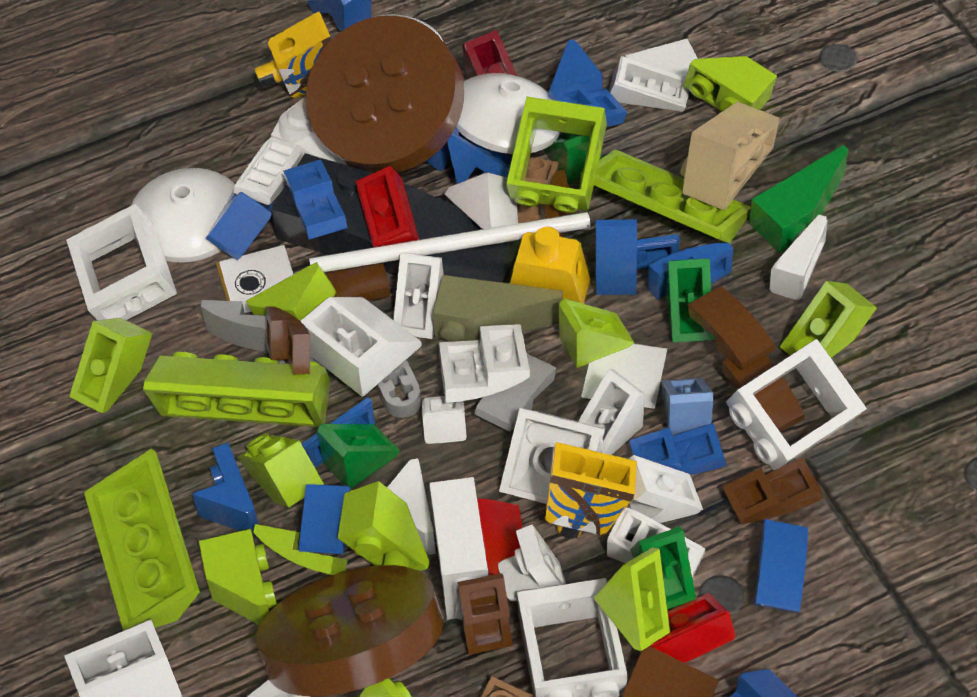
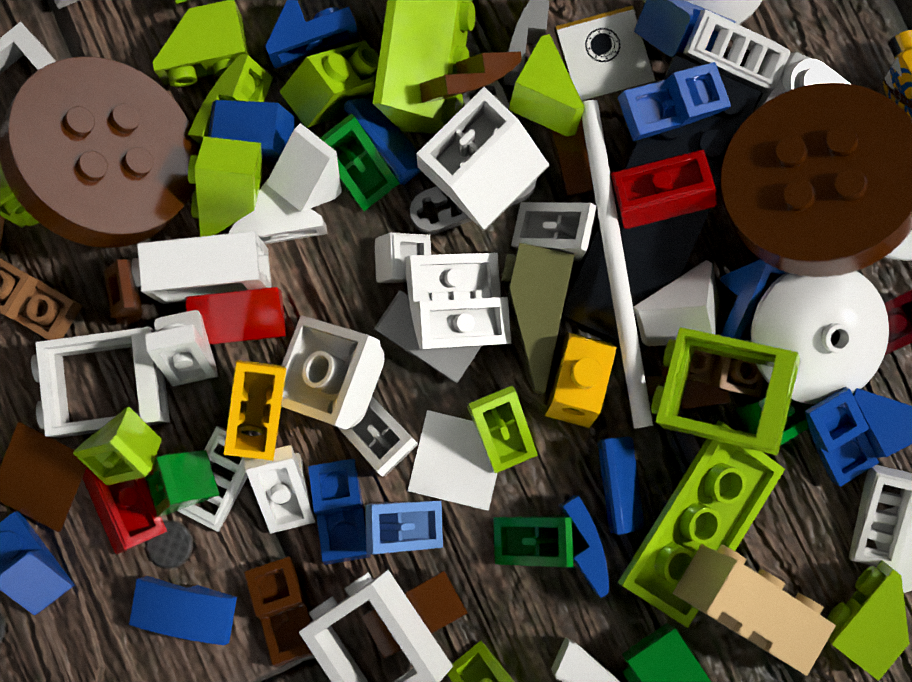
camera: 85 degrees right, 30 degrees up
(365, 460) = (306, 171): none -> white slope
(616, 257) = (592, 456): blue slope -> none
(733, 326) = (482, 585): reddish brown slope -> none

